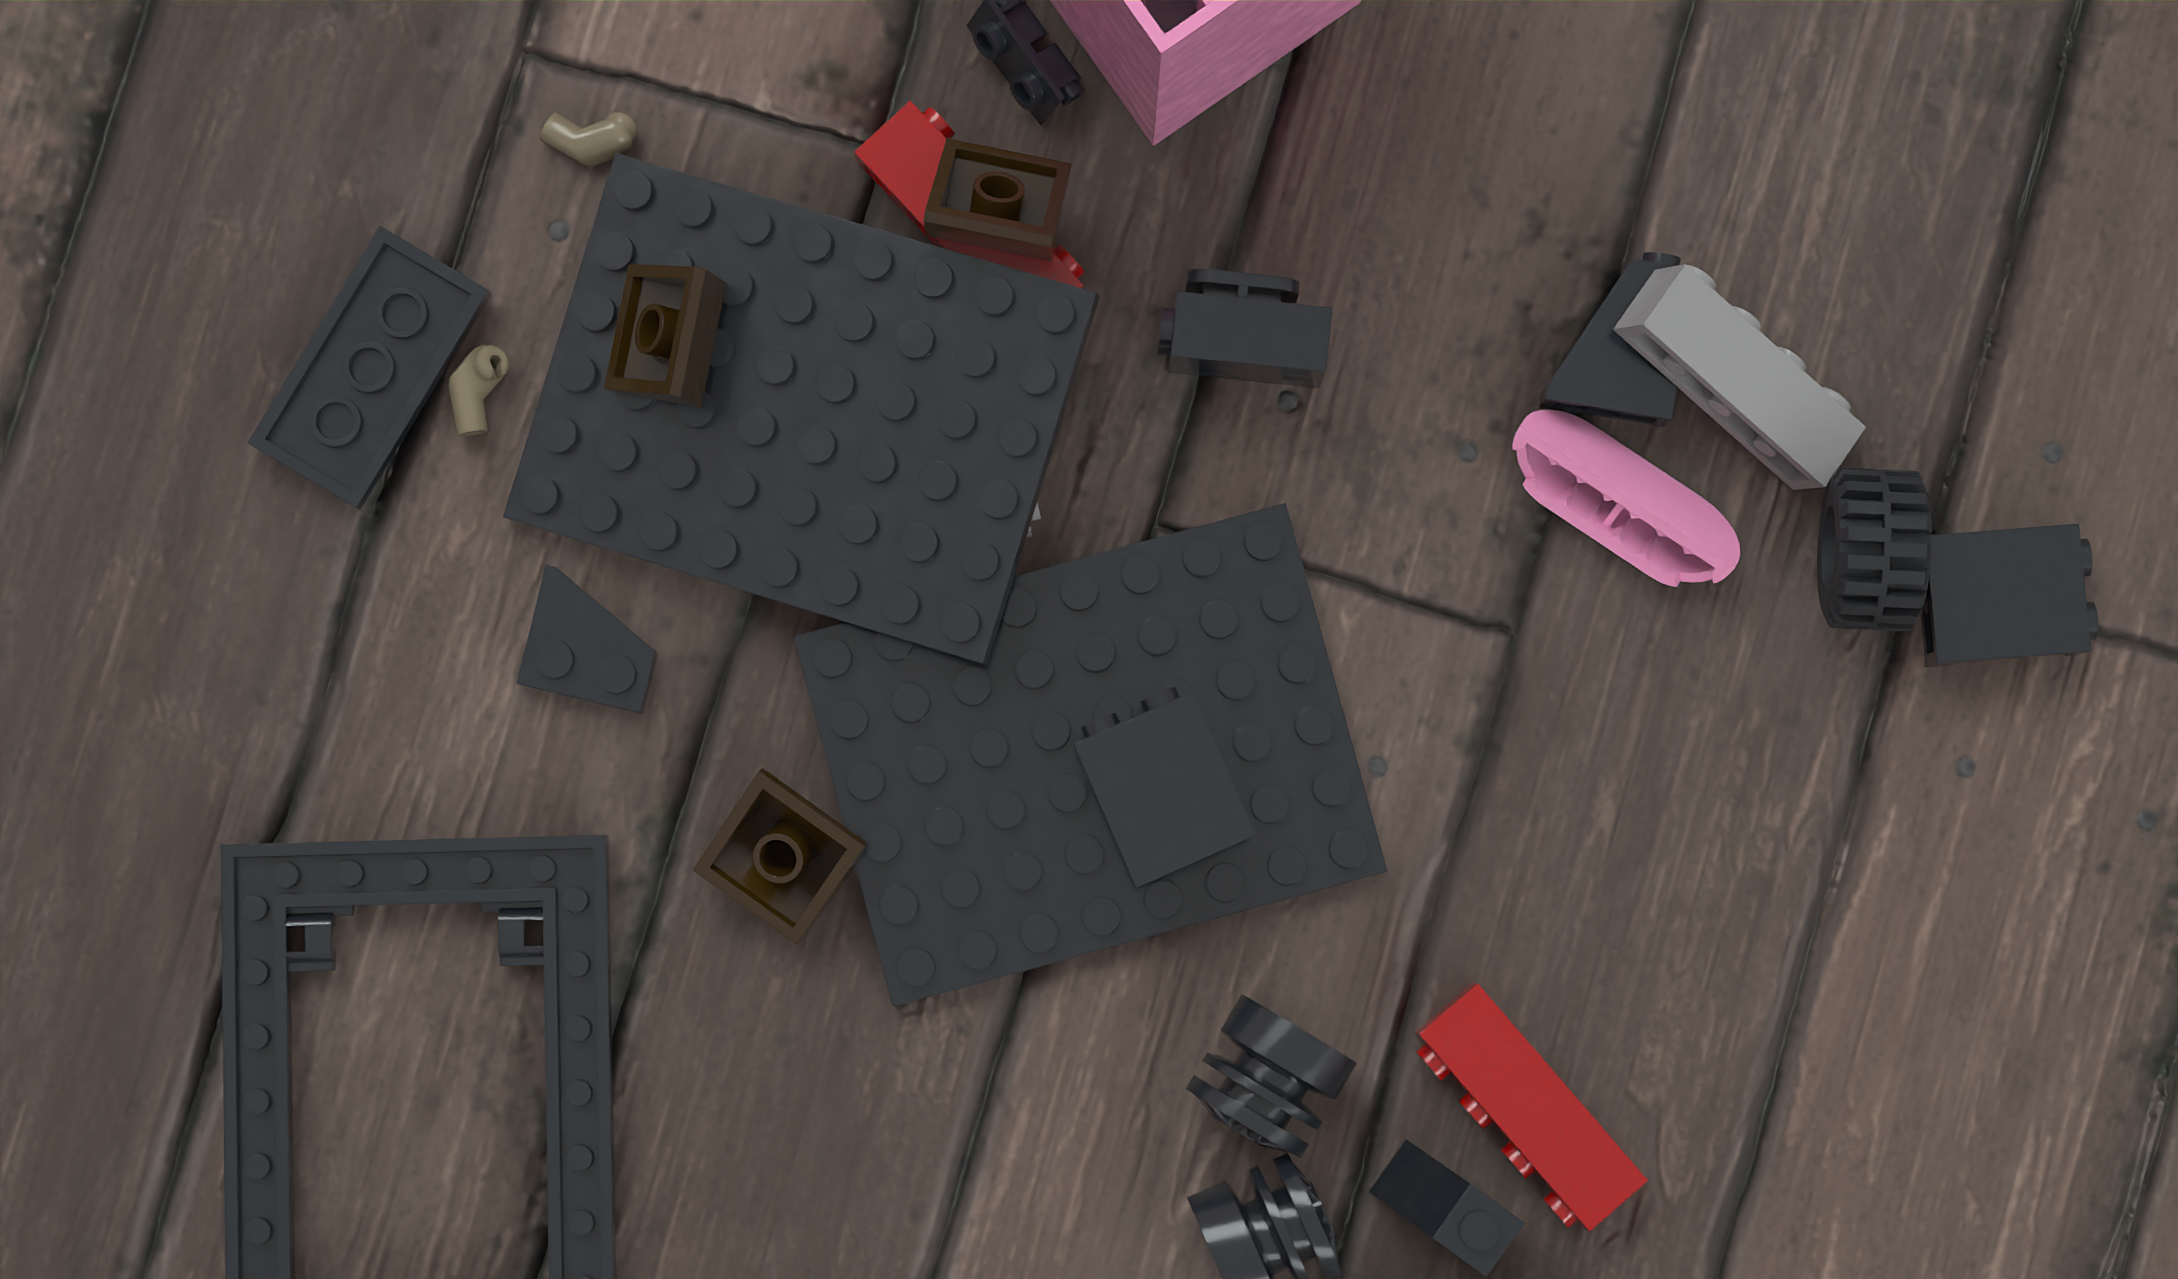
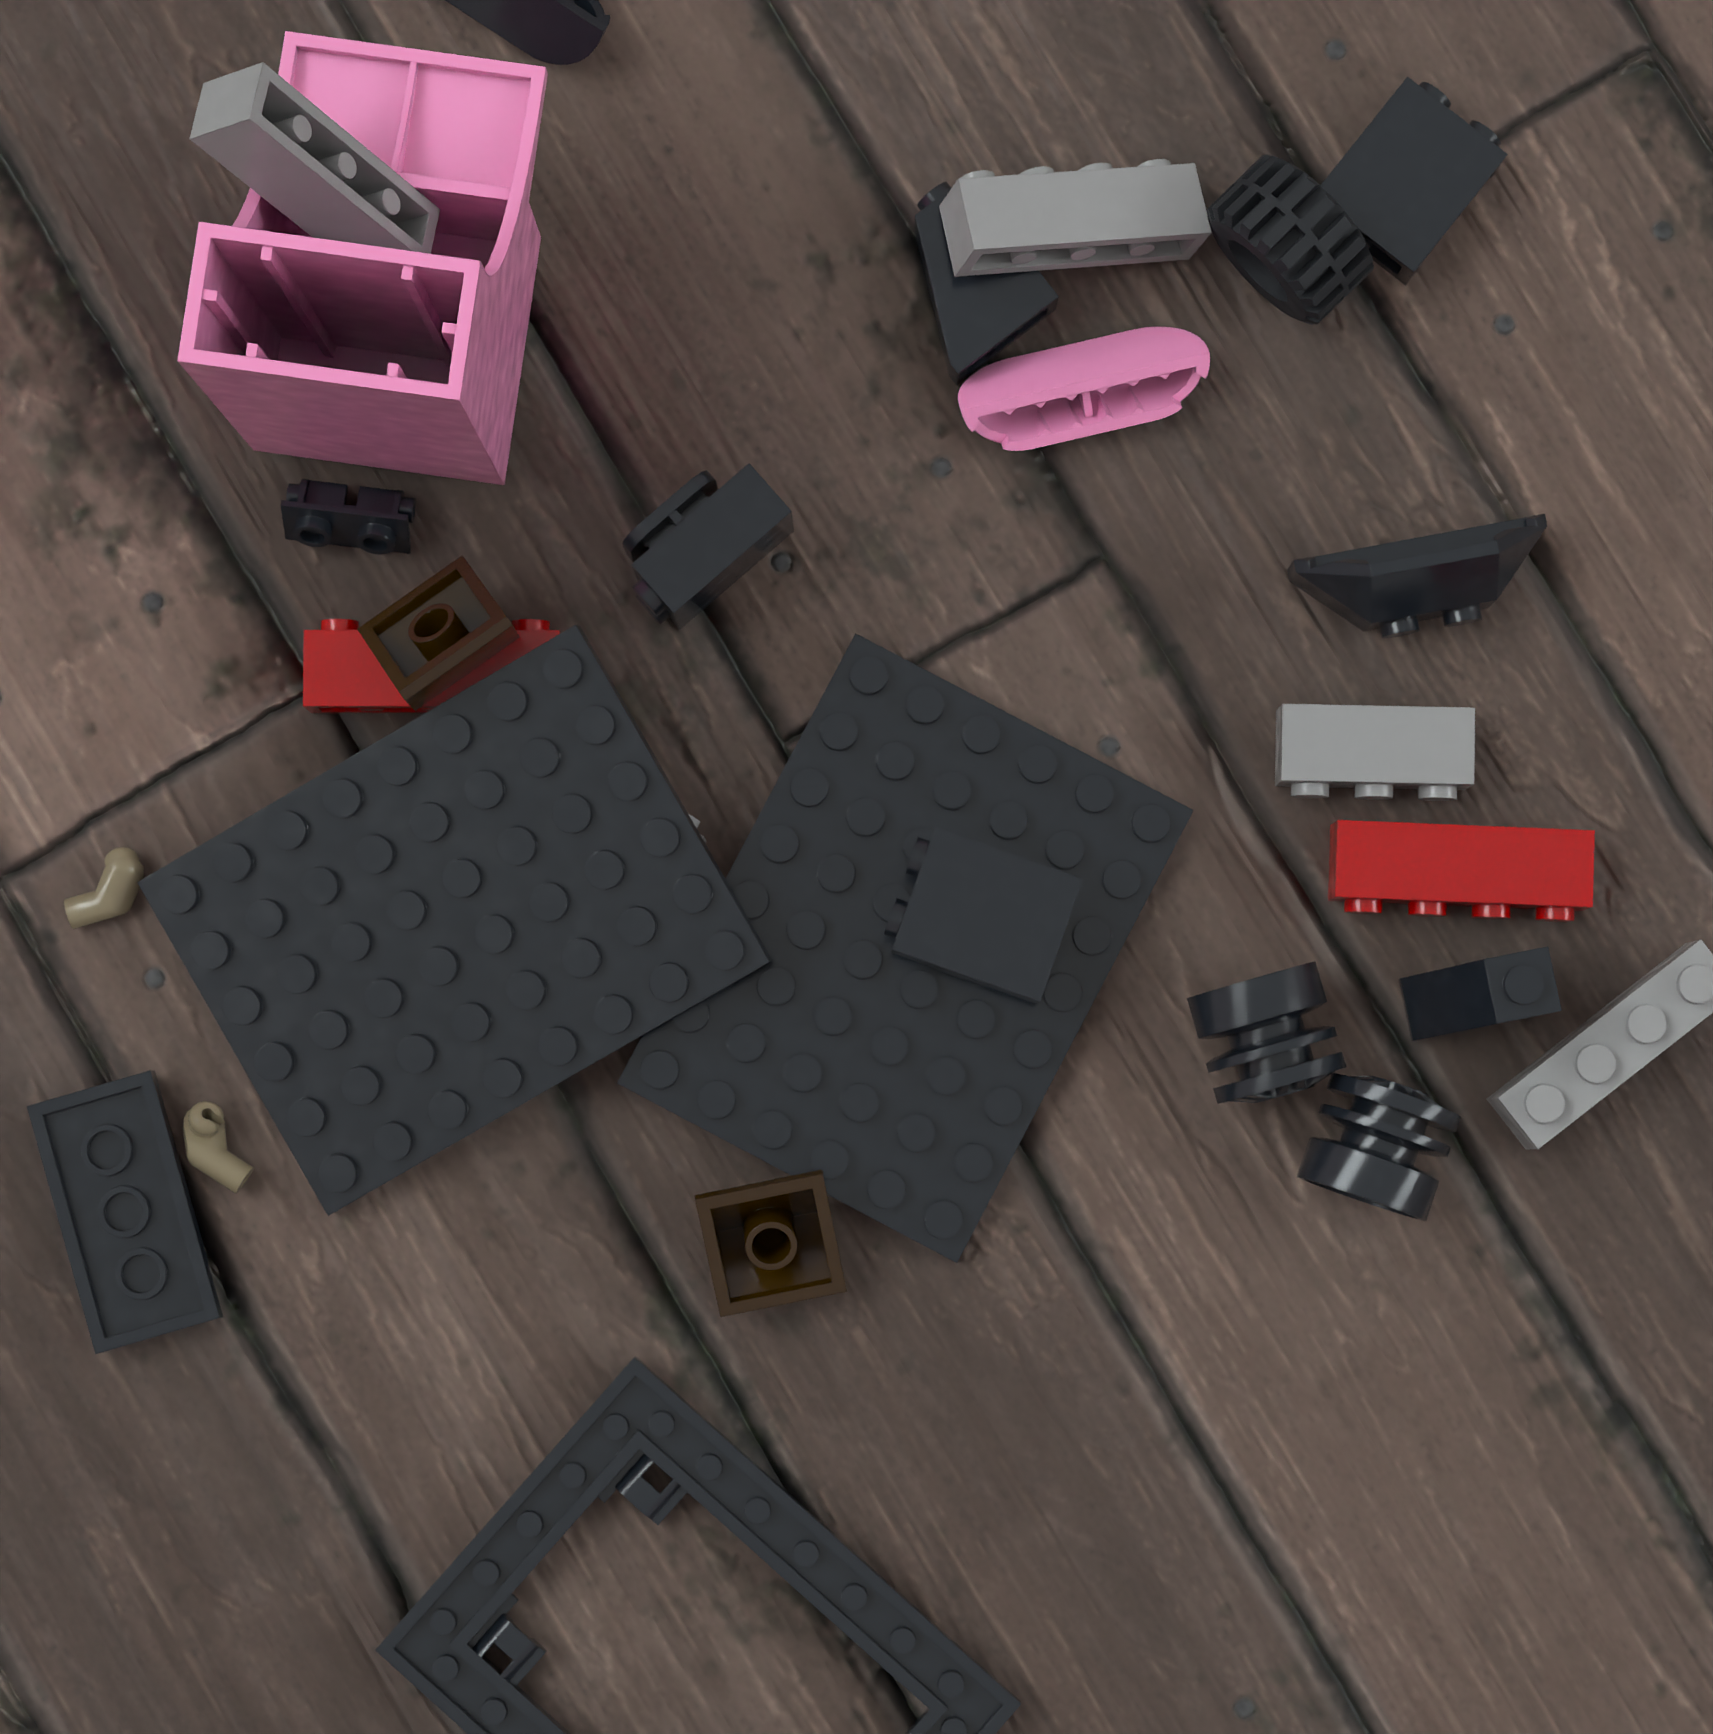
camera: 45 degrees left, 0 degrees up
(584, 649) = (481, 1246): black wing -> none
(665, 333) = (306, 968): dark brown slope -> none
(1556, 964) = (1375, 750): none -> light grey brick
(1716, 878) = (1420, 577): none -> black wedge

